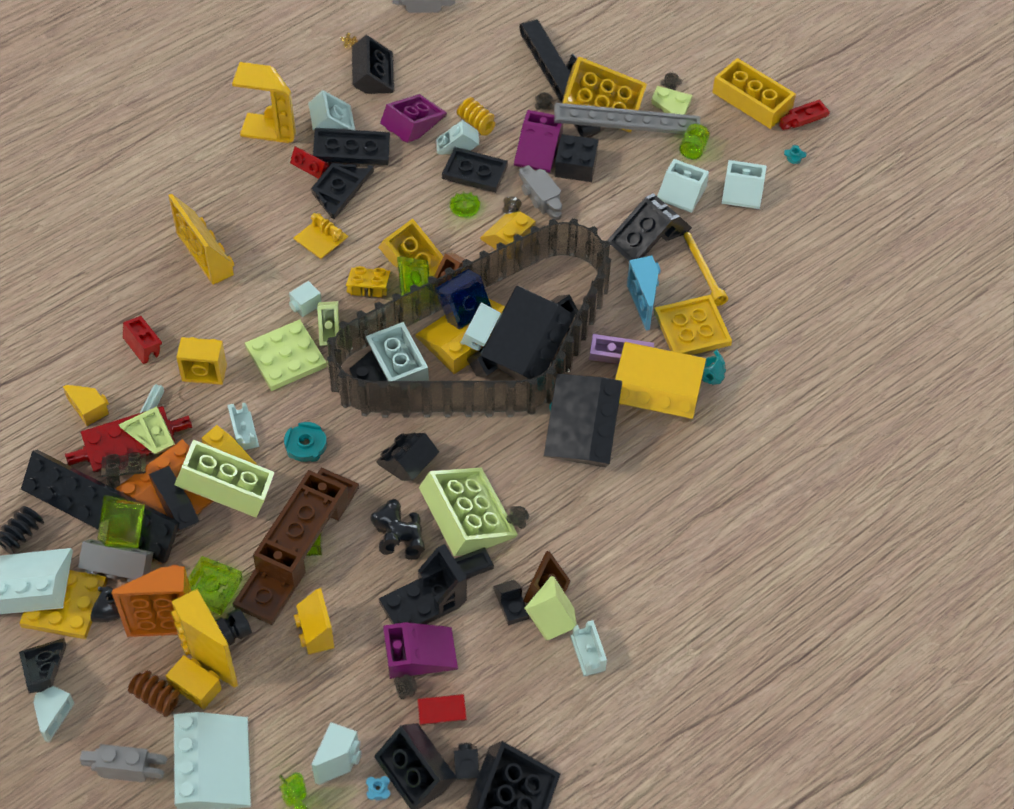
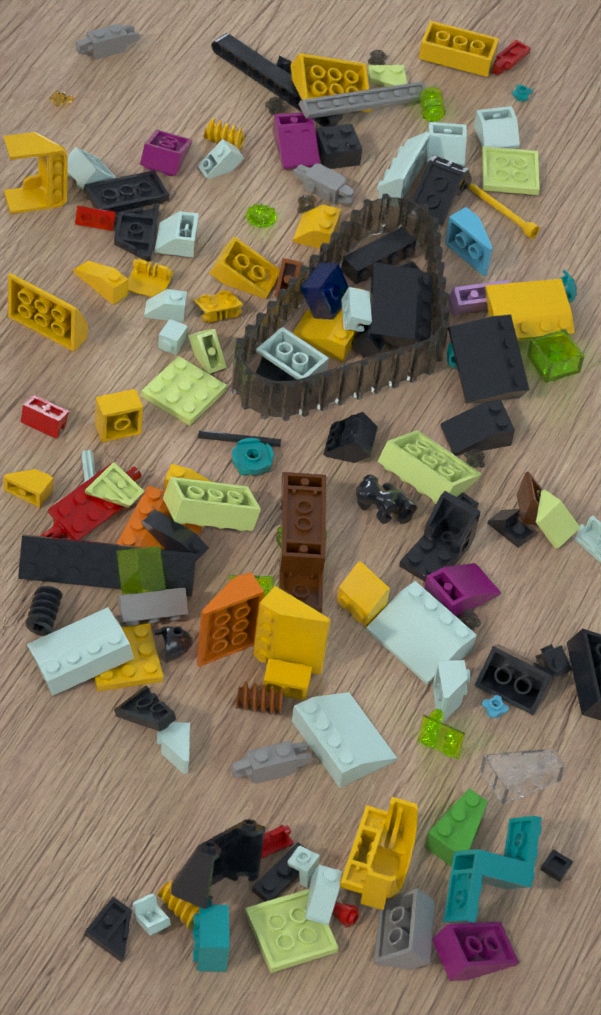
camera: 30 degrees left, 5 degrees down
(114, 466) = (105, 527): clear smoke hinge -> none
(243, 427) = (182, 457): light aqua hinge -> none
(278, 225) = (104, 280): none -> yellow slope
(305, 418) = (236, 437): none -> black bar
(320, 268) = (167, 305): none -> light aqua slope
(352, 681) = (421, 632): none -> light aqua slope
(372, 67) = (97, 116): black slope -> none
(372, 201) = (177, 234): none -> light aqua slope
(411, 272) = (258, 289): clear neon green slope -> none
(441, 709) = (509, 627): red hinge -> none
(475, 169) = (252, 182): black plate -> none
(539, 487) = (479, 428): none -> black slope
(552, 276) = (385, 250): none -> black brick
(621, 203) = (405, 167): none -> light aqua slope
(660, 436) = (555, 355): none -> clear neon green brick
(693, 326) = (525, 259): yellow plate -> none
(734, 230) = (510, 170): none -> yellowish green plate

